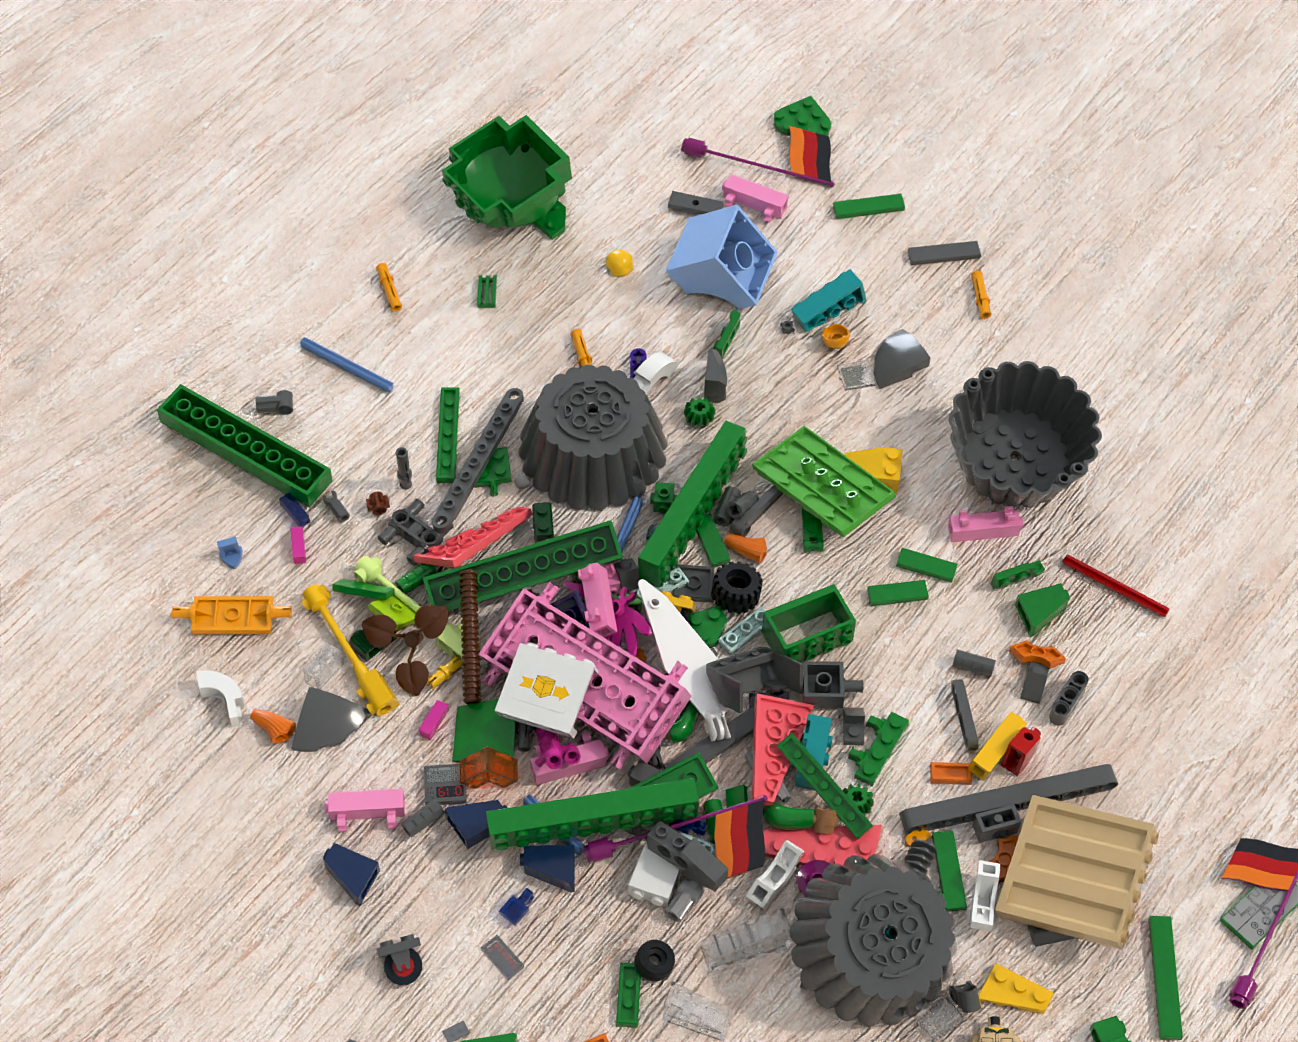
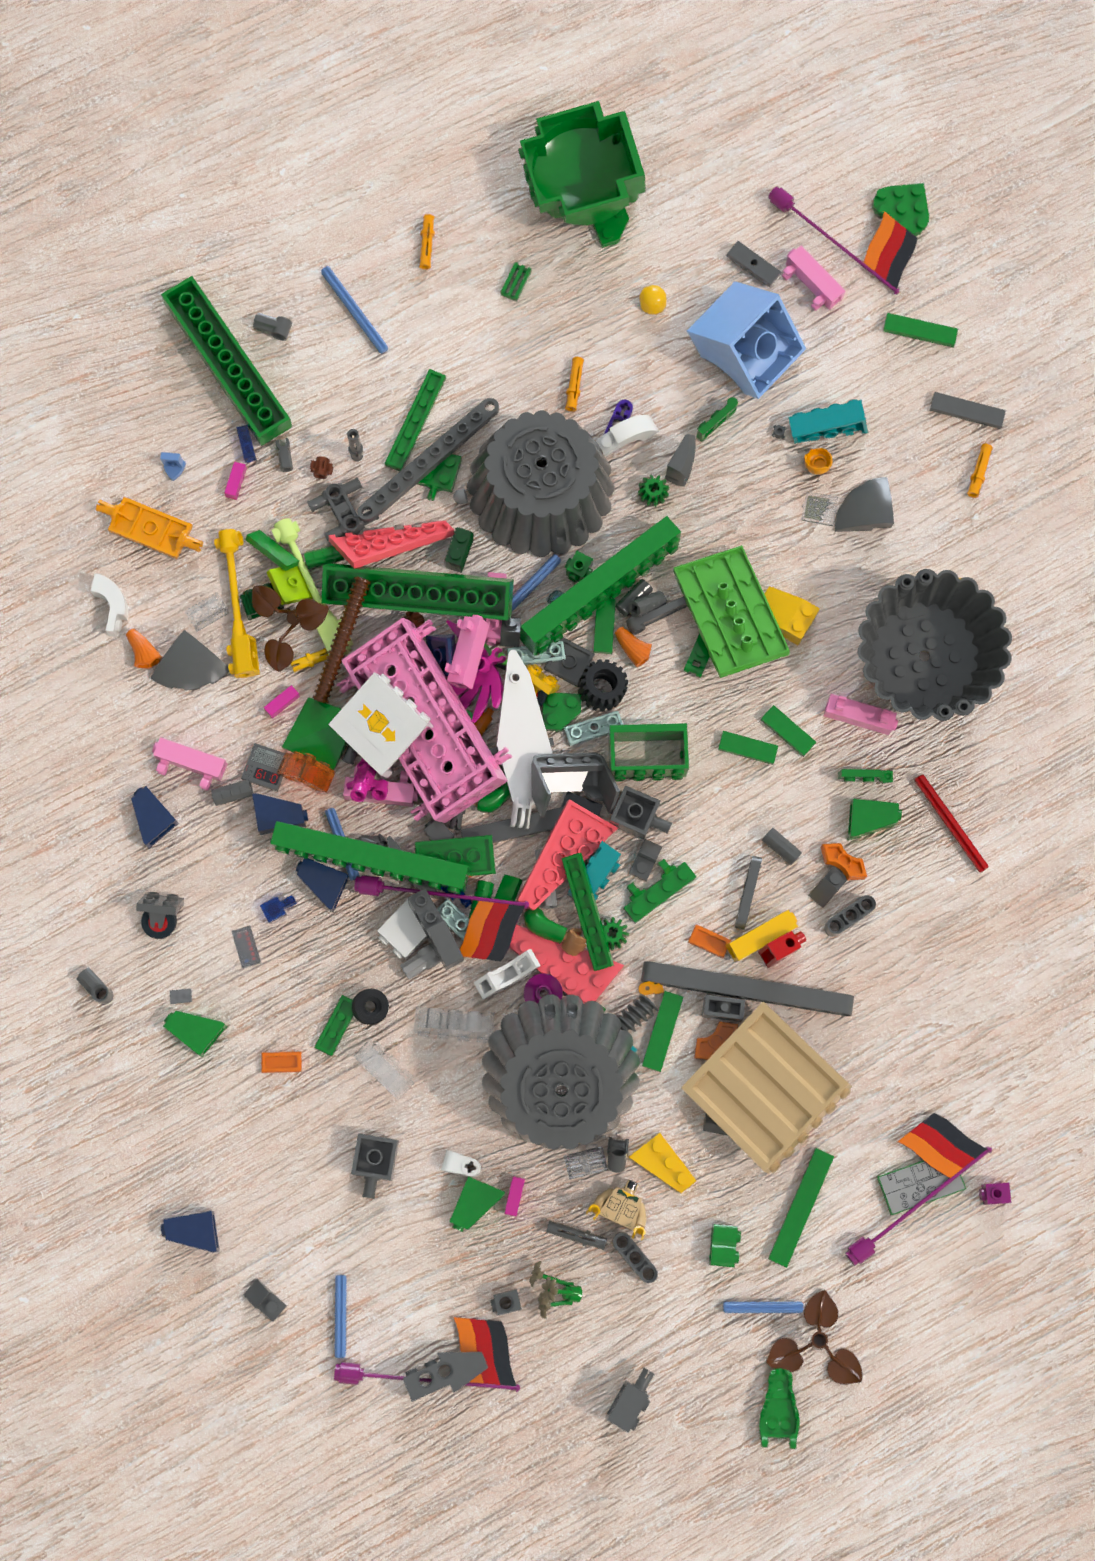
camera: 20 degrees right, 20 degrees up
(984, 895) = (678, 1071): white arch -> none

